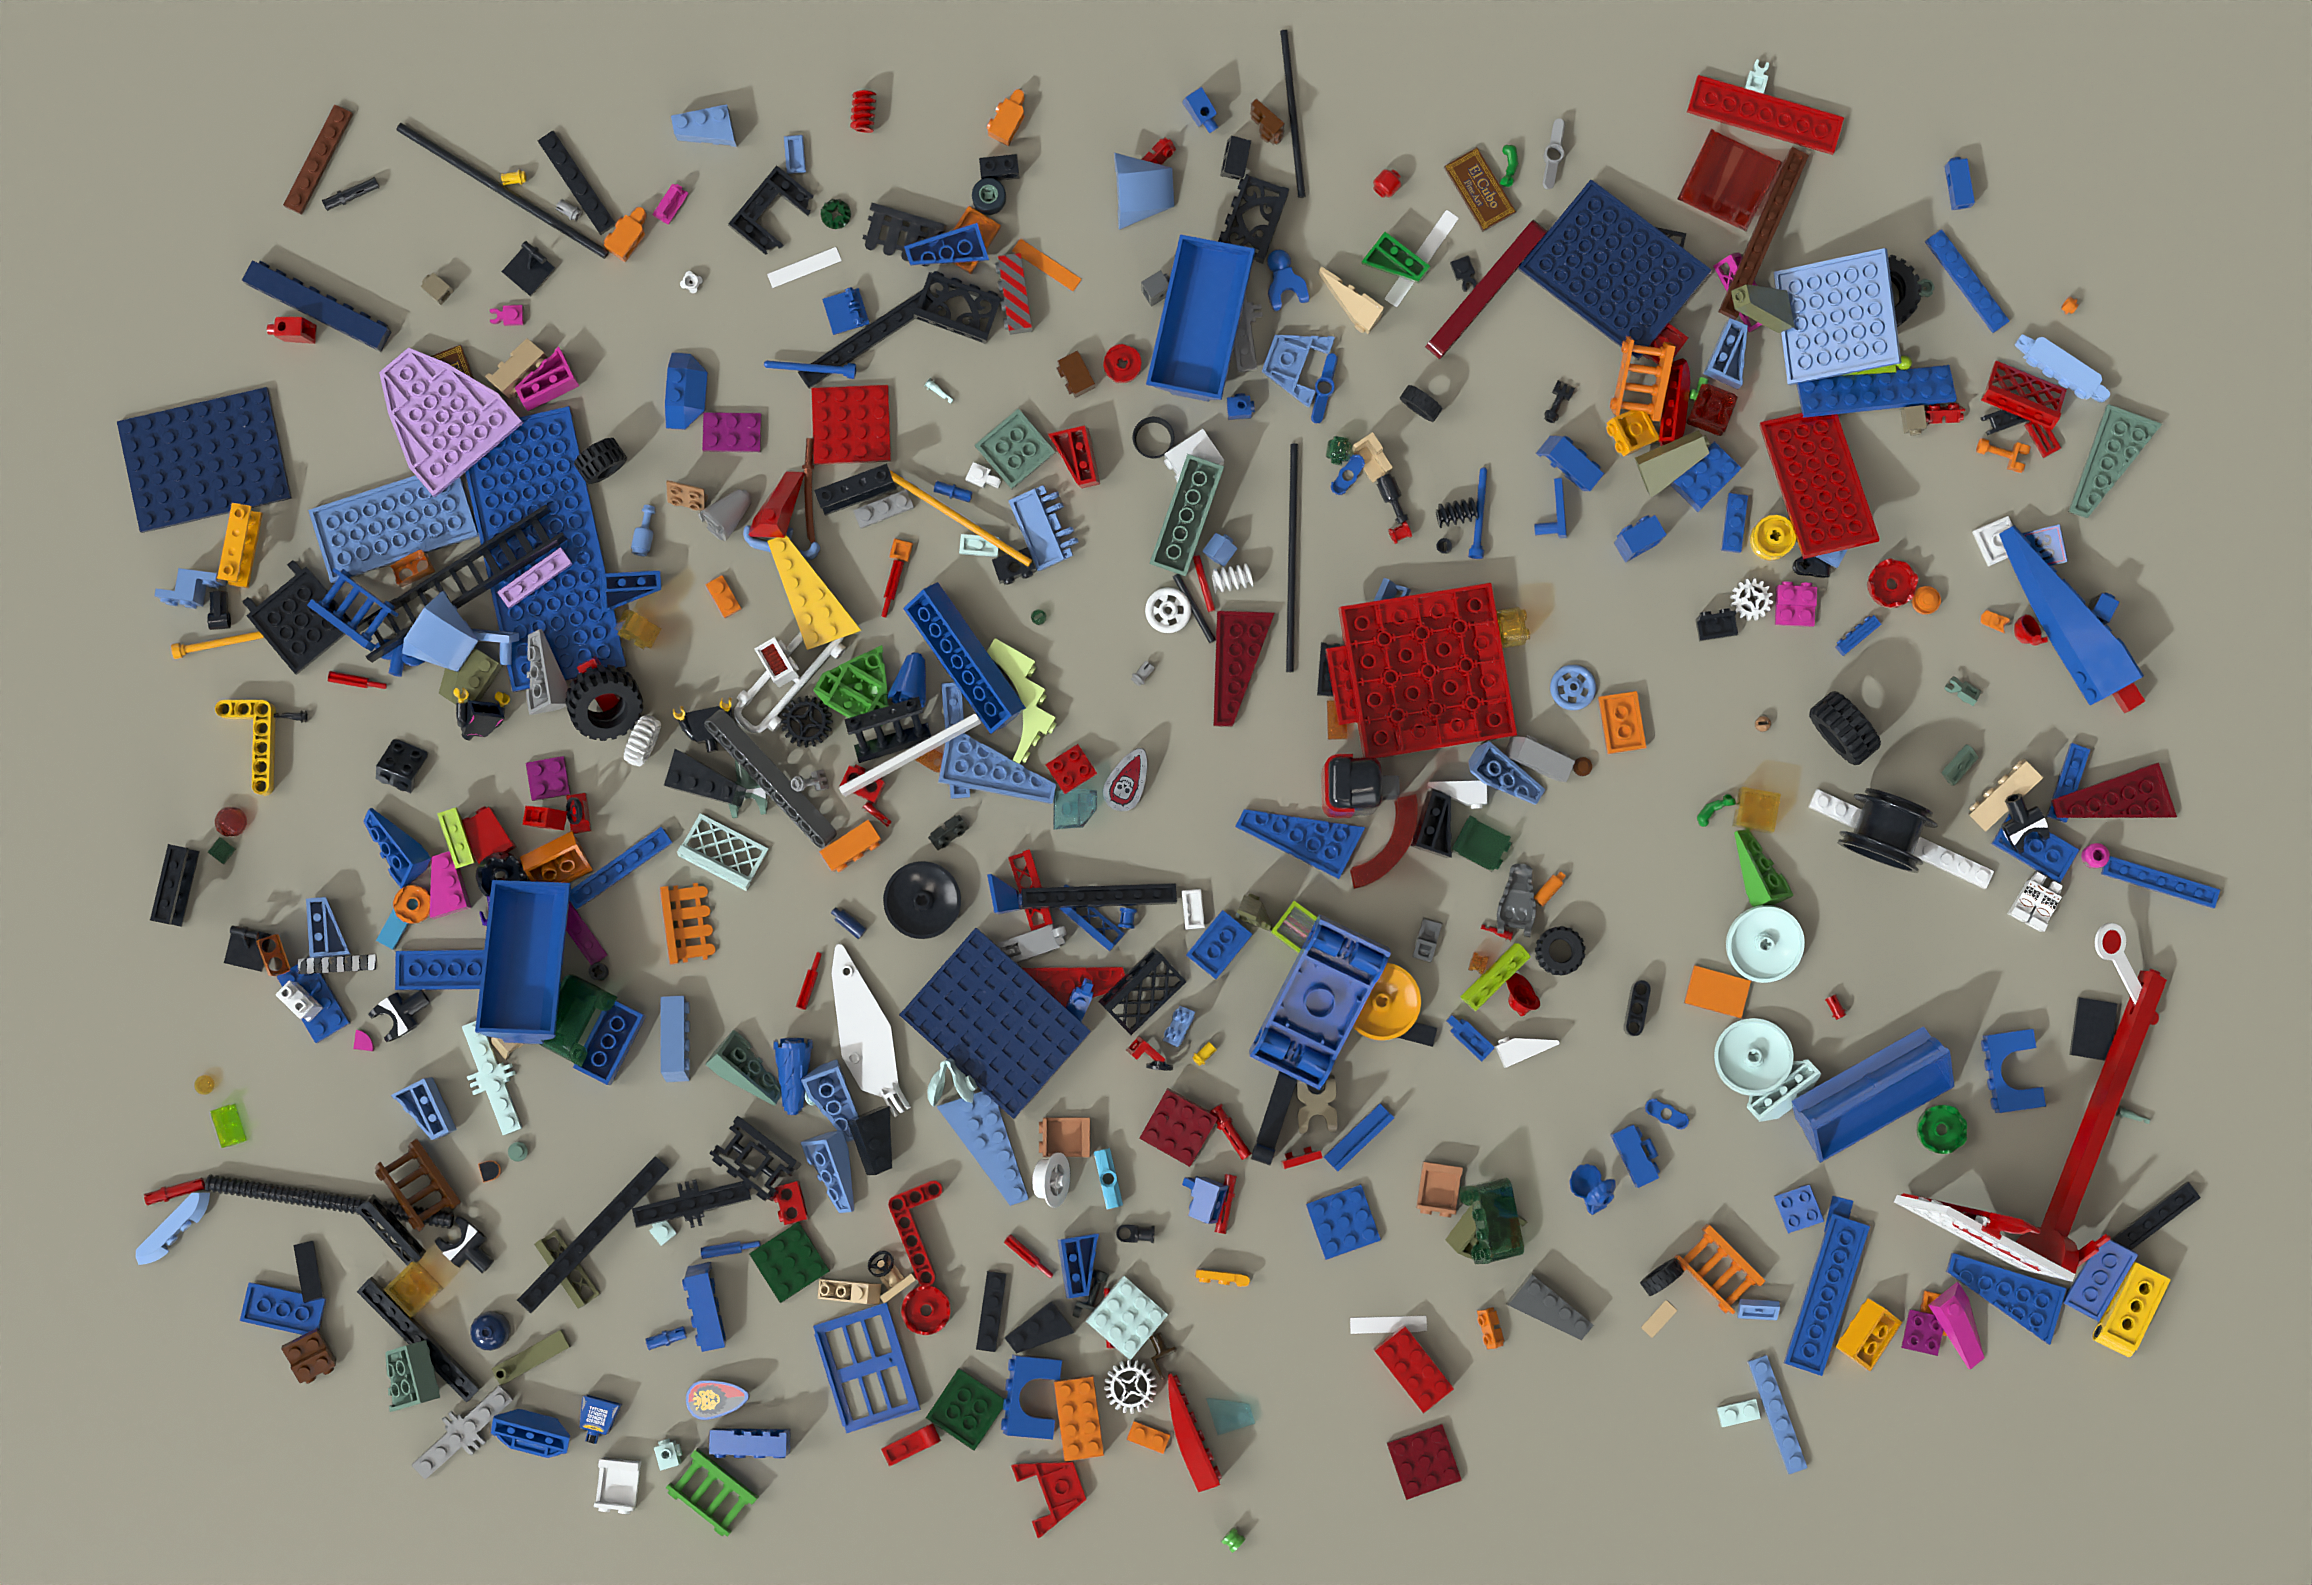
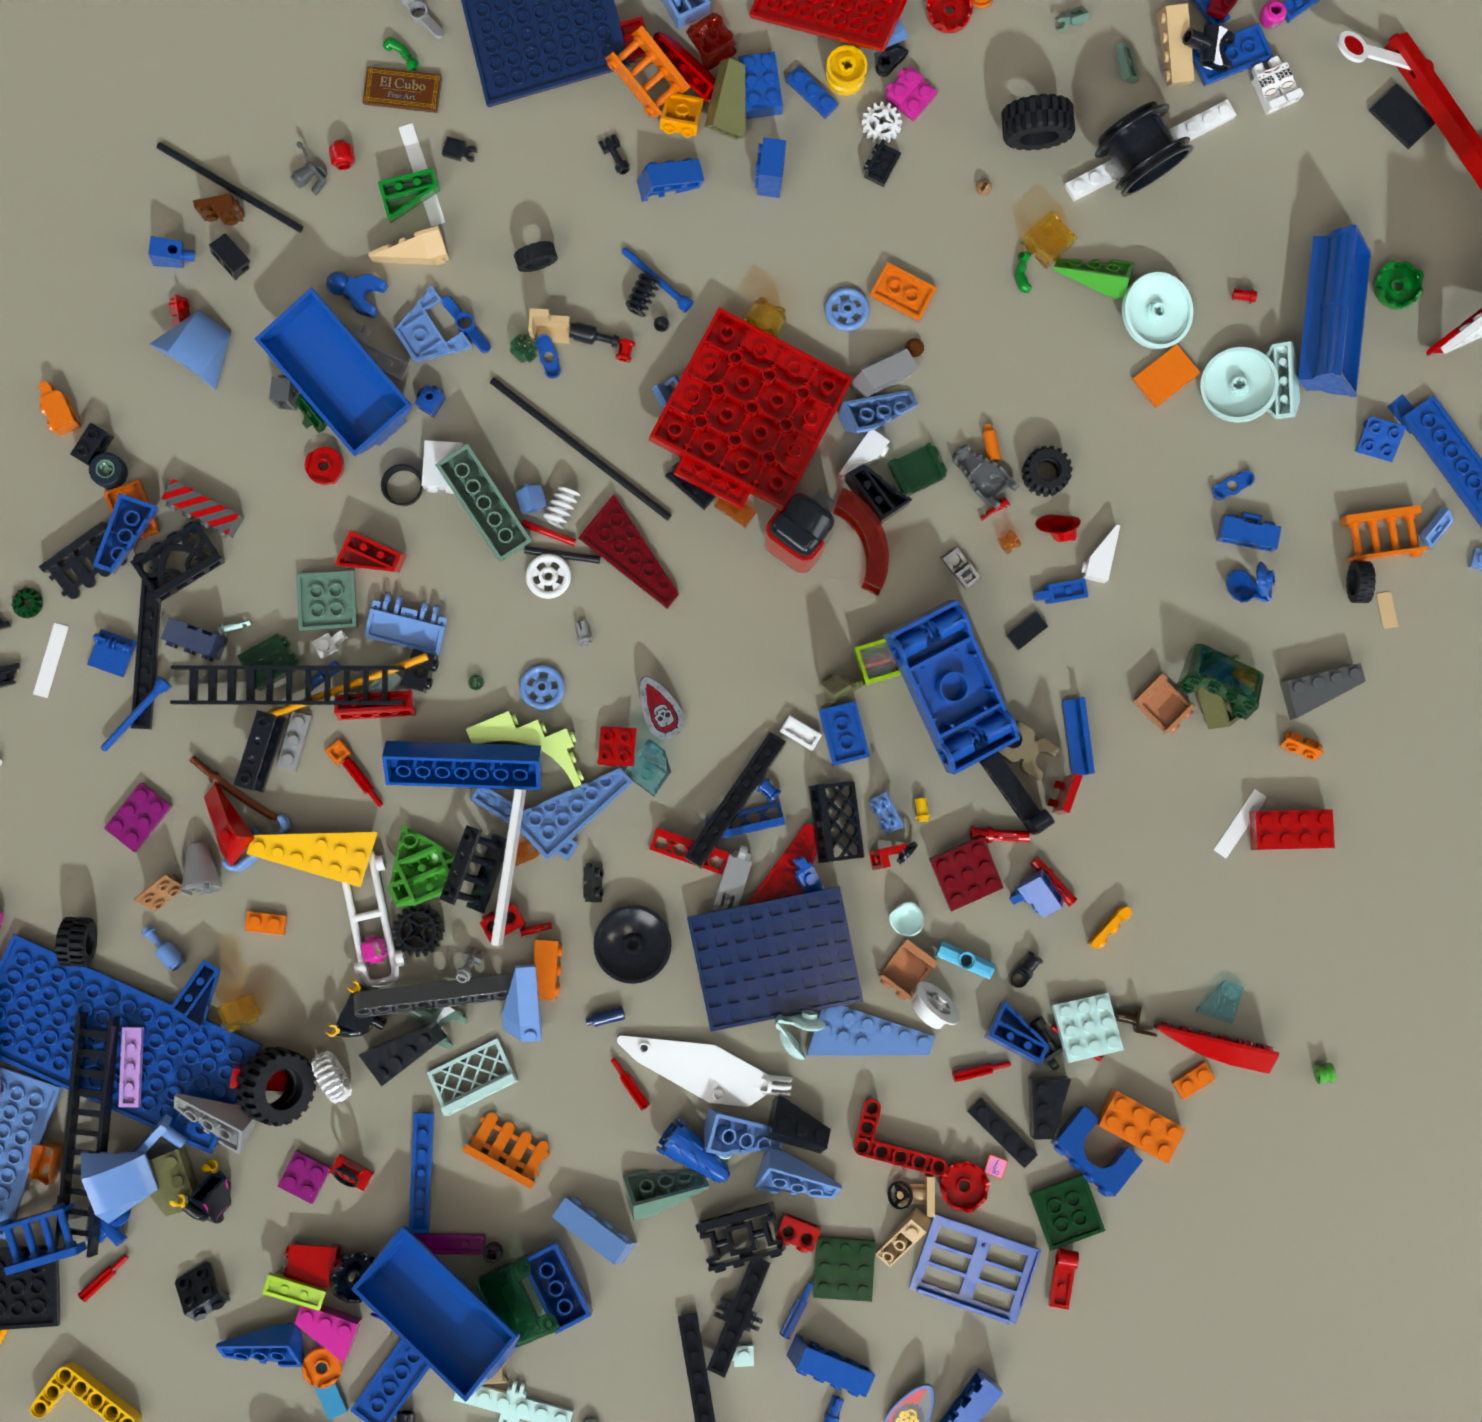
camera: 60 degrees left, 0 degrees up
(294, 716) = (97, 1345): black piece -> none
(544, 818) = (333, 1204): red brick -> none
(557, 861) = (377, 1220): orange slope -> none
(684, 391) = (74, 831): blue wedge -> none
(765, 698) = (373, 950): none -> dark pink head
(775, 660) = (351, 919): white piece -> none
(806, 850) = (522, 1007): none -> medium blue wedge
(851, 424) = (205, 729): red plate -> none
(902, 442) = (251, 680): none -> black ladder
(904, 368) = (193, 639): none -> dark blue wedge
(910, 680) = (448, 822): blue cone -> none
(932, 441) = (270, 652): none -> clear green brick
(959, 550) = (353, 712): none -> red fence
(960, 1325) = (995, 1166): none -> bright pink tile
(1004, 897) = (678, 875): blue slope -> none
(1047, 265) = (200, 466): orange sticker -> none
(1060, 1488) = (1183, 1182): red wing -> none
(1076, 374) = (304, 508): reddish brown brick -> none
(1077, 689) = (553, 675): none -> medium blue plate
(1106, 1106) = (907, 919): none -> light aqua helmet
(1121, 1401) = (1136, 1068): white gear -> none
(1153, 322) = (311, 416): none -> dark green hinge
(1275, 203) = (289, 252): black fence -> none
(1309, 840) = (817, 599): blue wing -> none
(1343, 1222) = (1134, 799): blue plate -> none
(1348, 165) = (303, 175): none -> dark grey piece
(1390, 1006) = (996, 634): light orange dish -> none
(1424, 1461) = (1368, 875): dark red plate -> none
(1486, 289) = (484, 142): dark red beam -> none
(1495, 976) = (1029, 535): lime fence -> none
(1559, 526) = (713, 223): blue piece -> none
(1643, 1000) = (1133, 436): black beam -> none
(1694, 392) = (689, 46): bright green arm -> none
(1858, 635) = (969, 67): blue piece -> none
(1996, 1049) = (1366, 198): blue arch -> none

